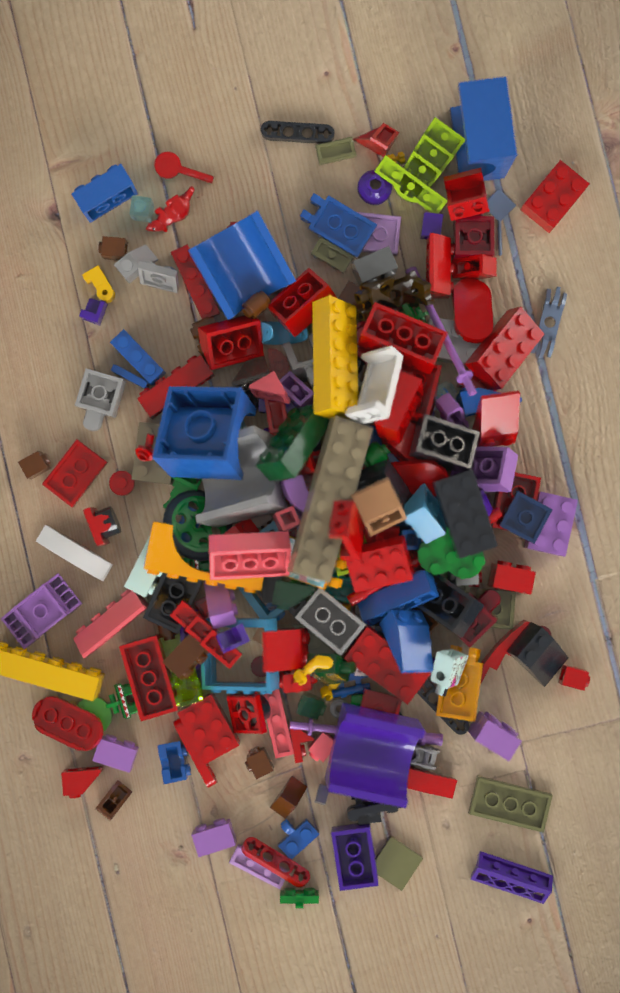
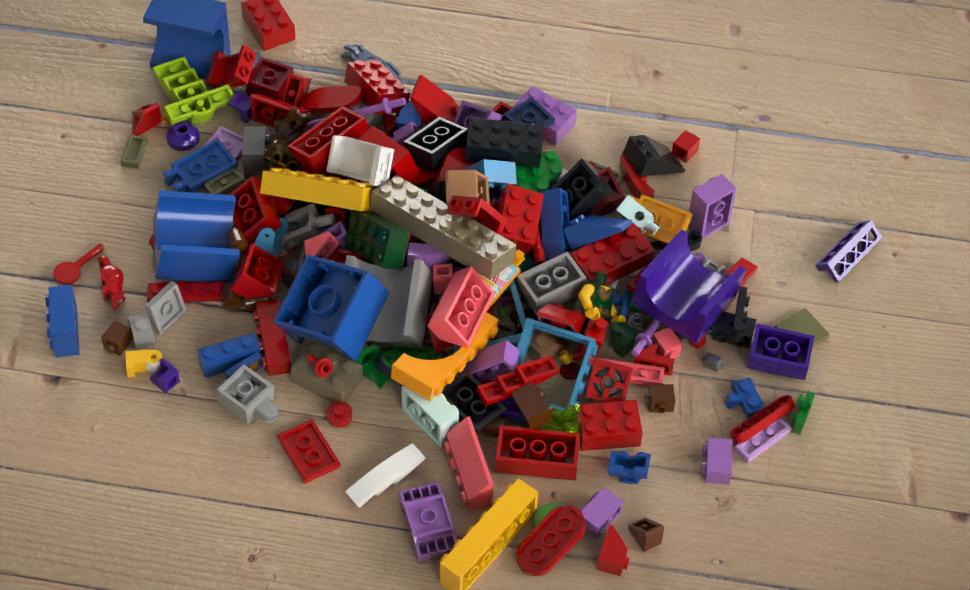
camera: 65 degrees left, 35 degrees down
(35, 464) = (282, 477): reddish brown brick -> none
(102, 524) = (370, 436): red piece -> none
(126, 708) = (551, 487): green hips -> none
(141, 208) = (94, 303): clear light blue brick -> none
(204, 769) = (632, 446): red beam -> none
(232, 638) = (531, 350): dark purple panel -> none
(289, 797) = (706, 391): reddish brown slope -> none
(290, 594) = (511, 299): clear green slope -> none
(297, 135) = (97, 169): black beam -> none
(510, 578) = (579, 145): red brick -> none
(510, 804) = (780, 230): olive tile -> none

